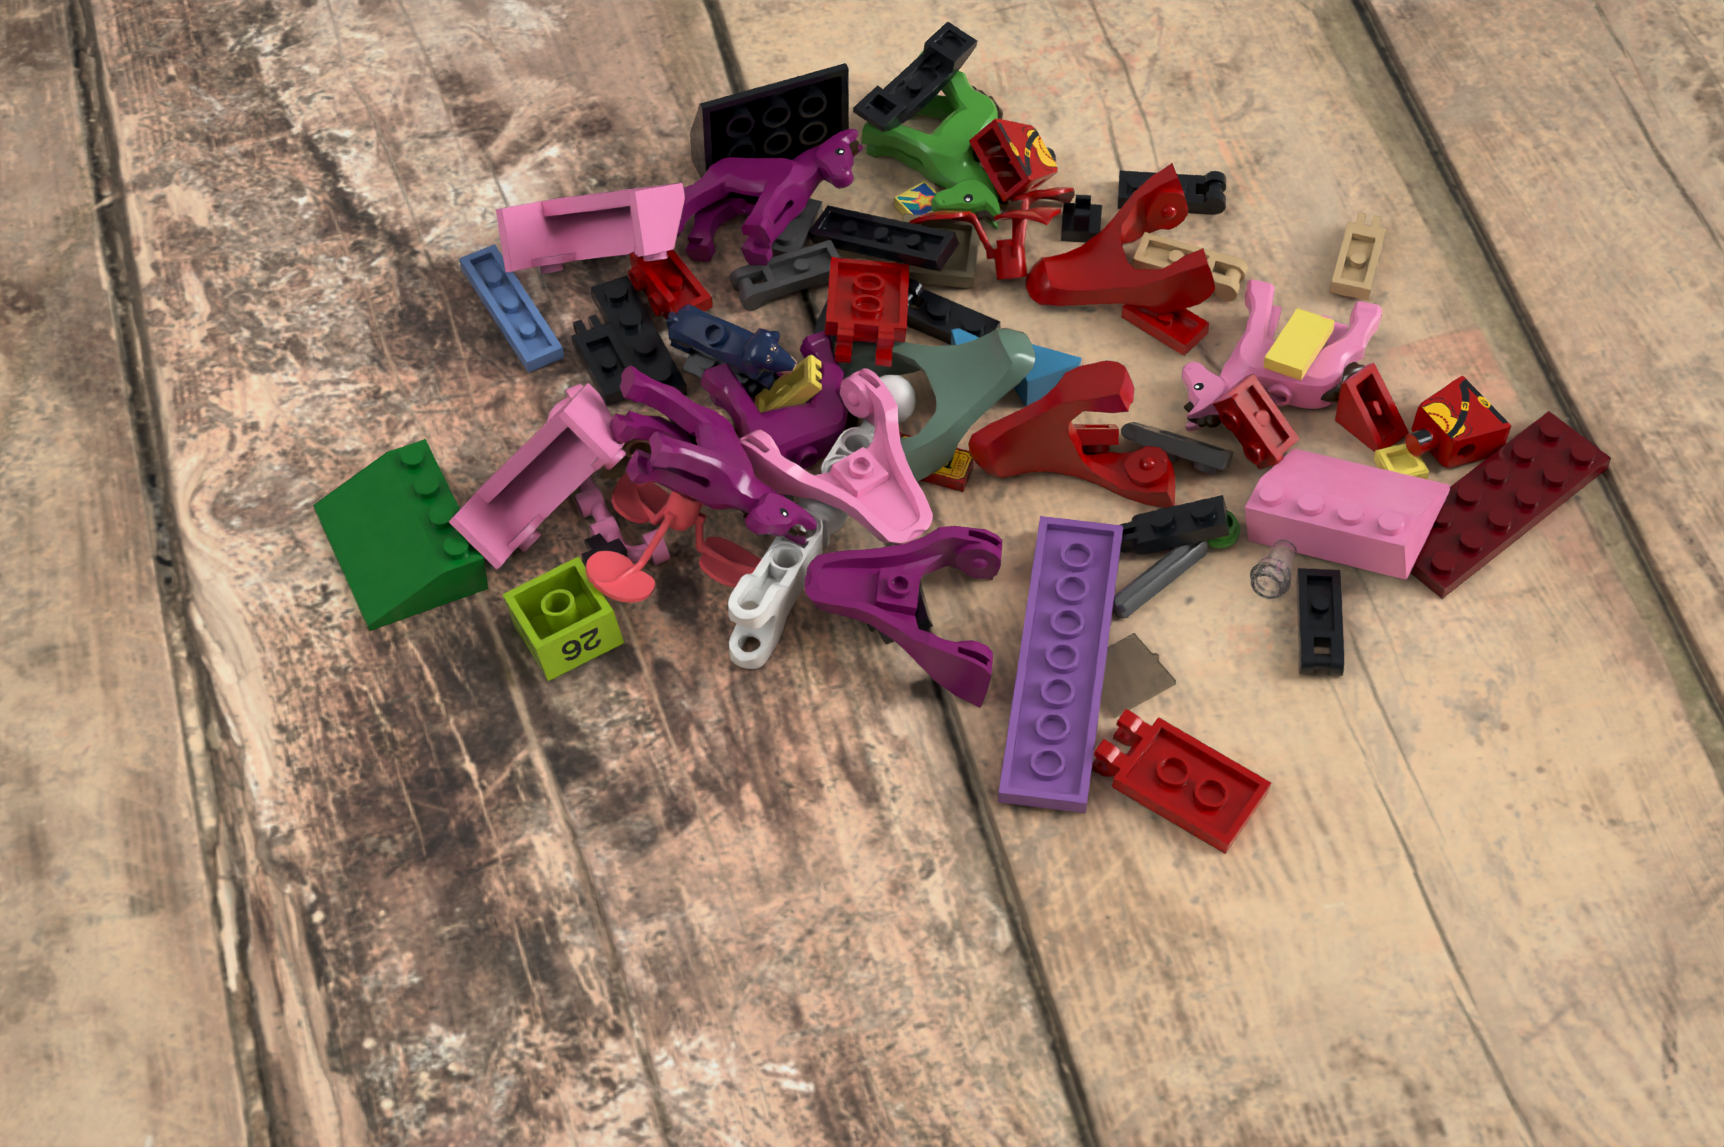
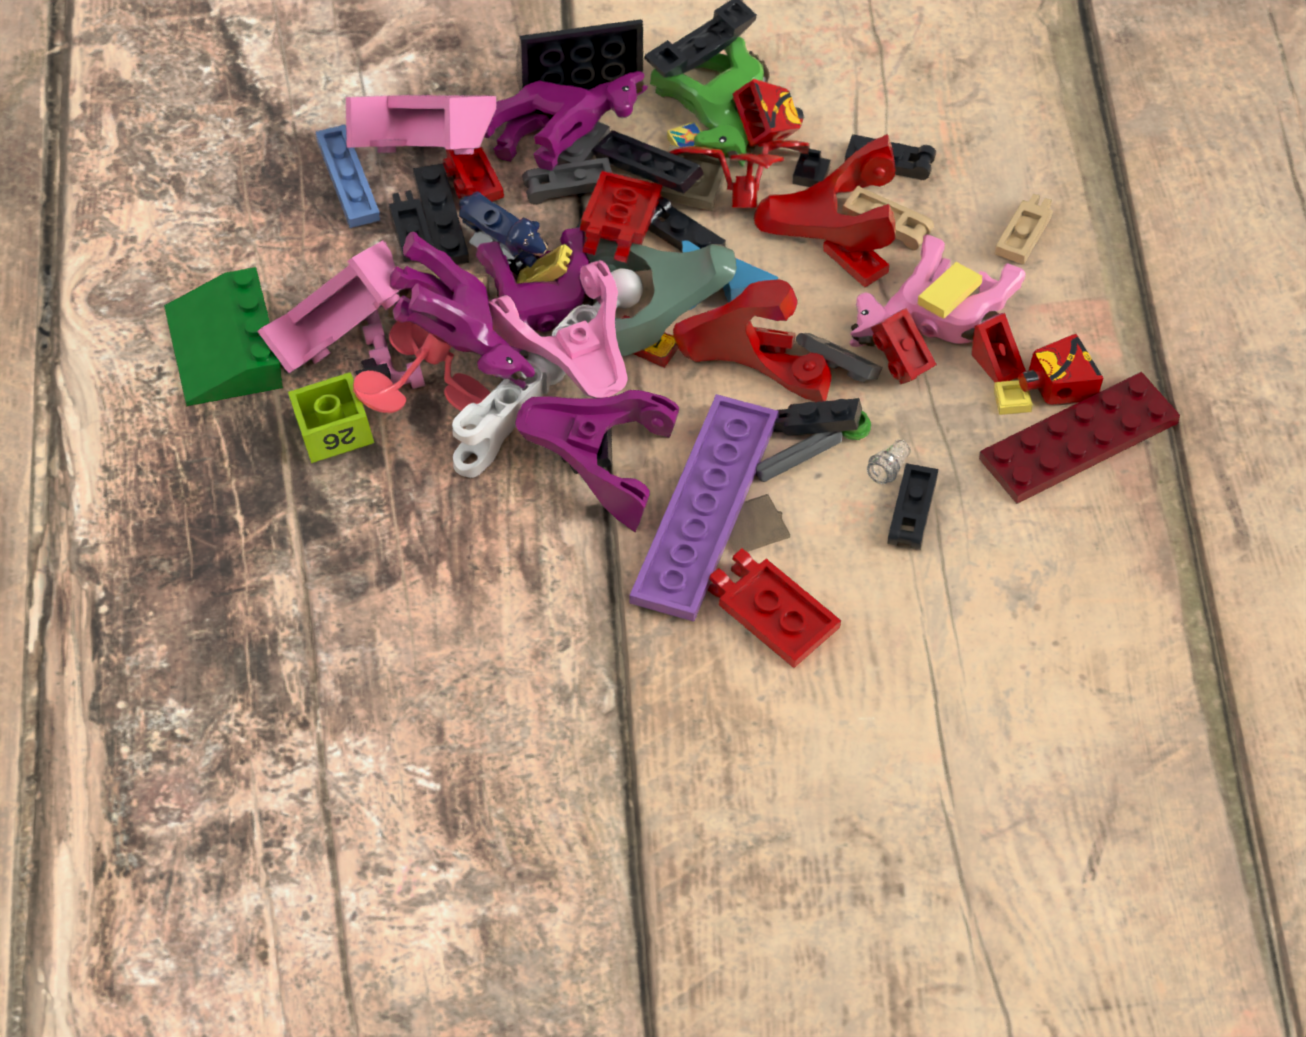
camera: 10 degrees right, 0 degrees up
(1345, 512) = (954, 425): bright pink slope -> none

